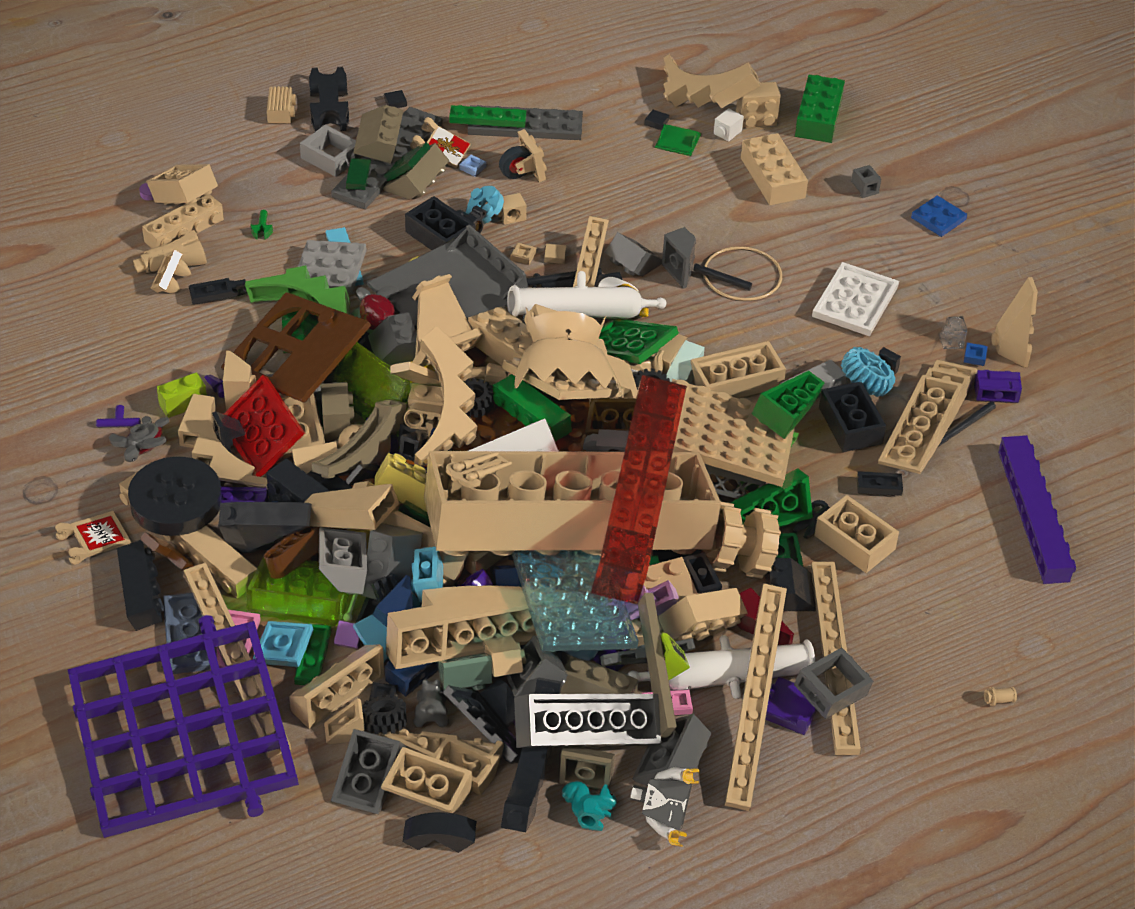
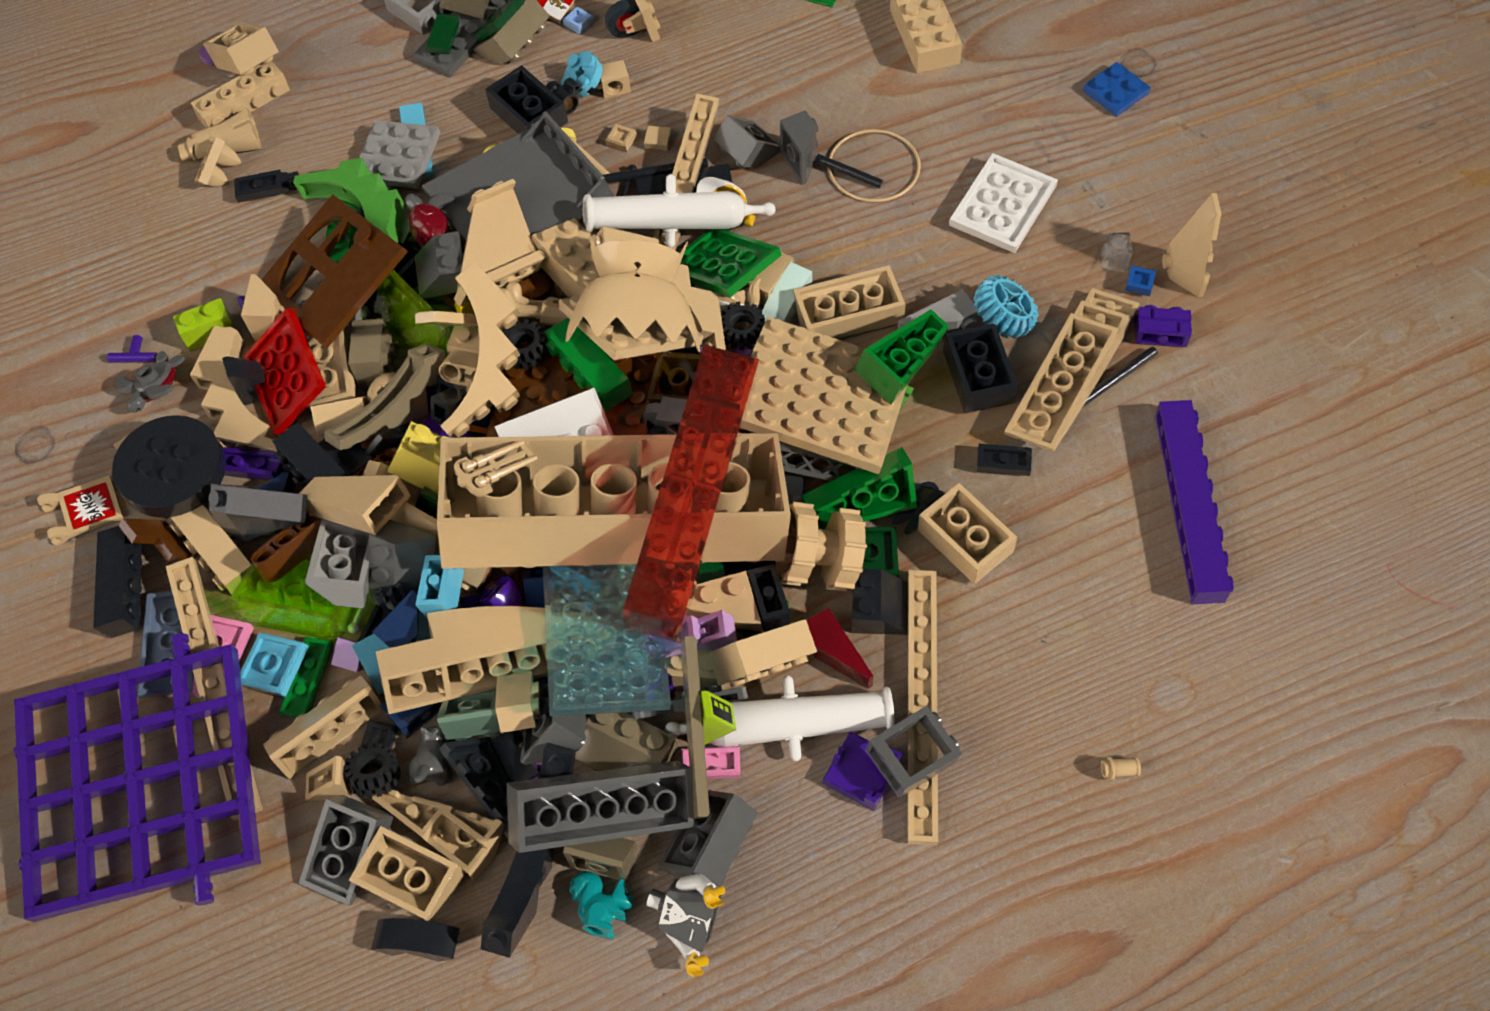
camera: 10 degrees right, 15 degrees up
(267, 229) = (336, 104): green bar -> none
(755, 698) = (814, 770): tan plate -> none
(866, 181) = (1033, 42): dark grey brick -> none
(891, 359) = (1035, 287): black tile -> none

